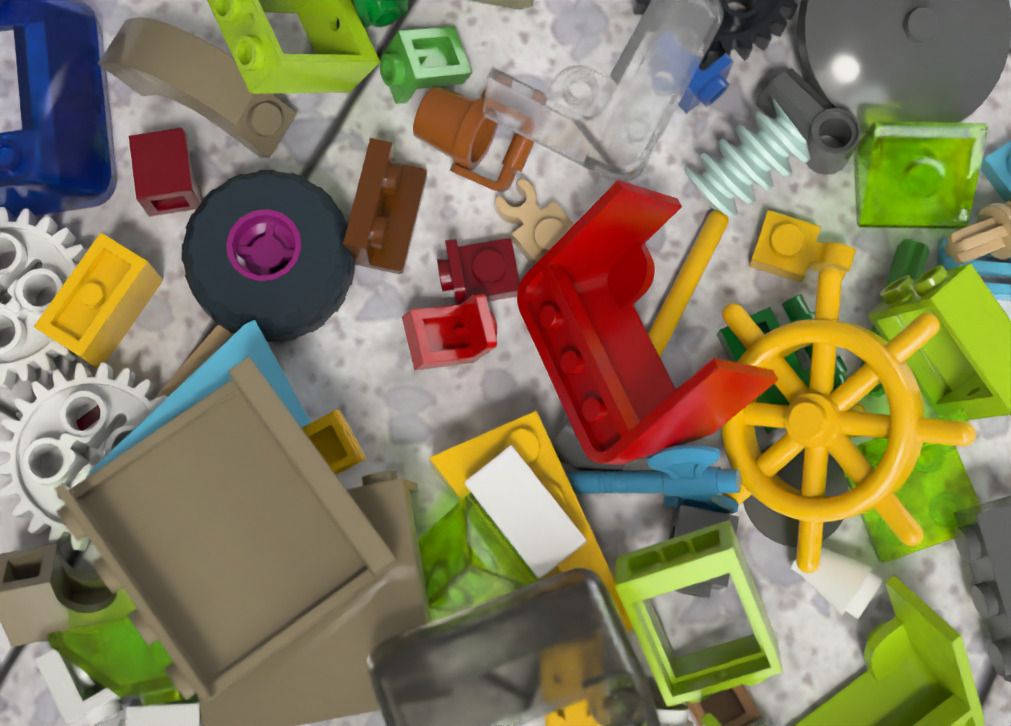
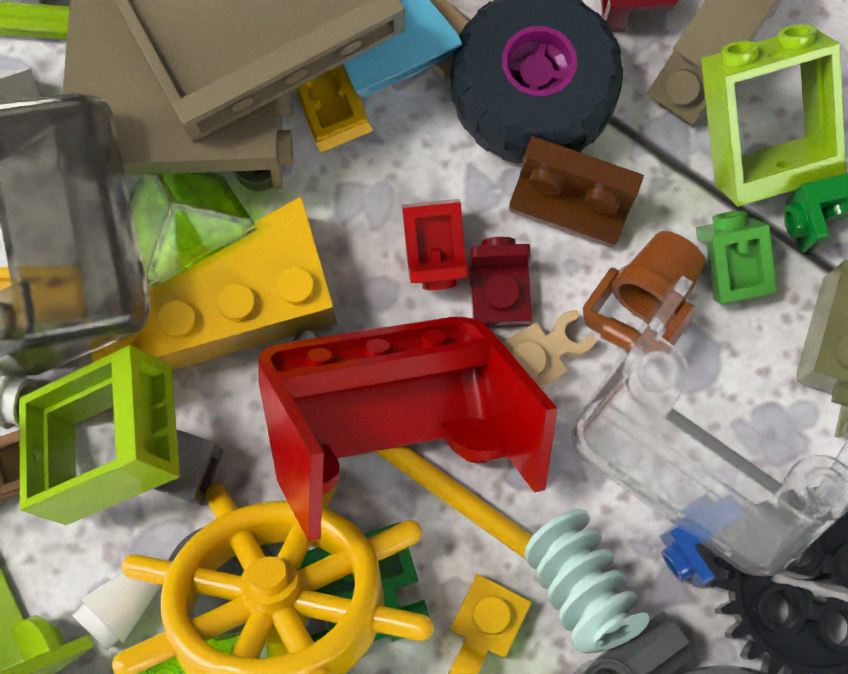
camera: 100 degrees right, 0 degrees up
(525, 512) = (225, 275): white tile -> none
(679, 473) = (242, 445): dark azure piece -> none

